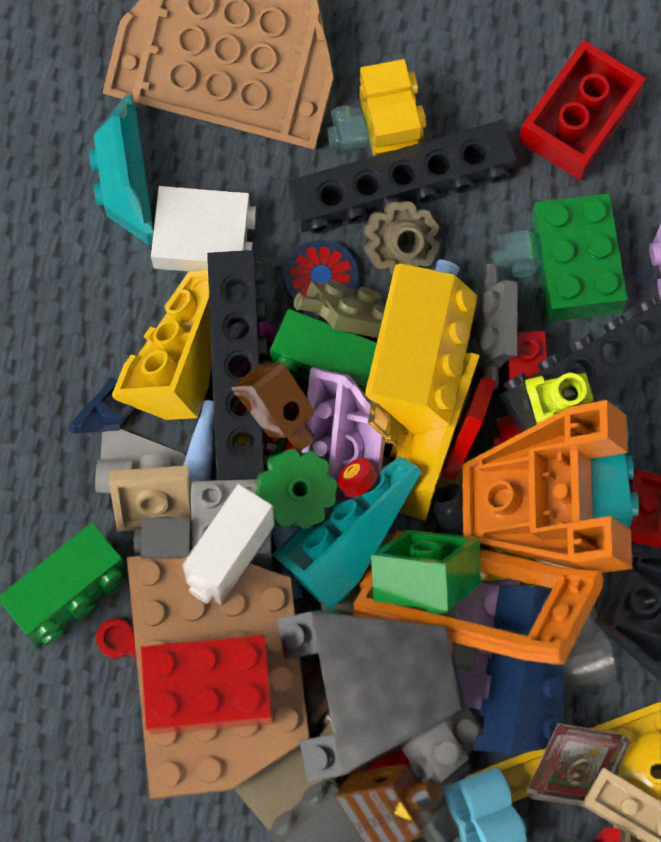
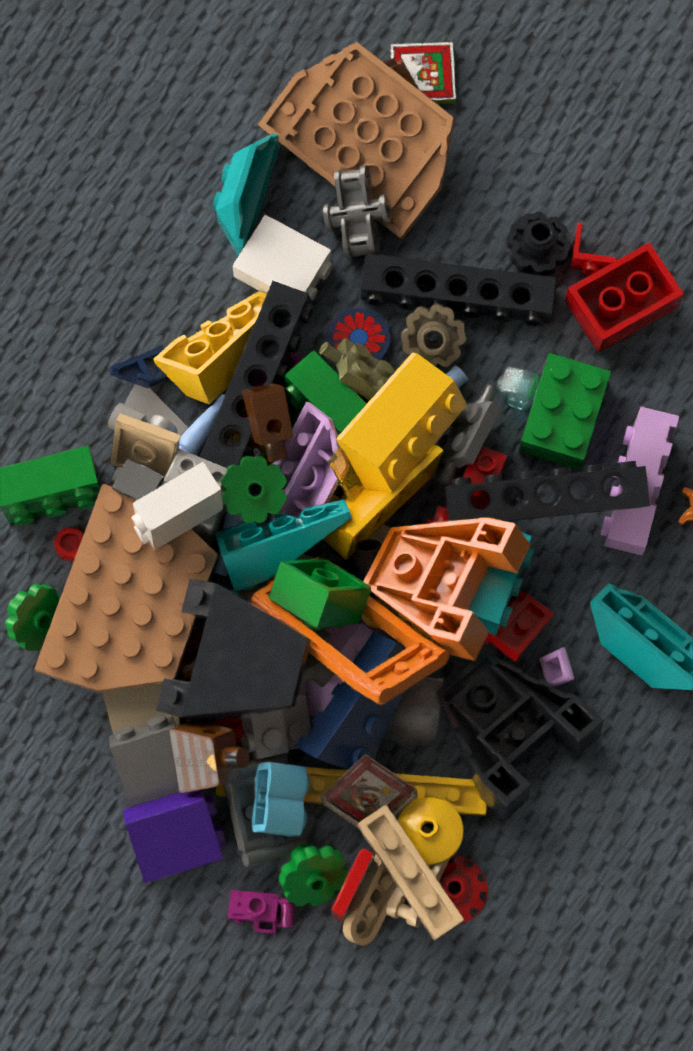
camera: 25 degrees right, 0 degrees up
(116, 738) = (31, 616): none -> green plant
(206, 685) = (113, 603): red brick -> none
(250, 129) = (356, 205): none -> dark grey axle
(348, 130) = (433, 234): clear light blue plate -> none
(357, 477) = (304, 501): red tile -> none
(391, 107) = (473, 230): yellow brick -> none
(462, 92) = (538, 244): none -> black plant
(468, 428) = (410, 502): red tile -> none
(527, 90) = (587, 262): none -> red bracket
(547, 394) = (477, 503): neon yellow plate -> none

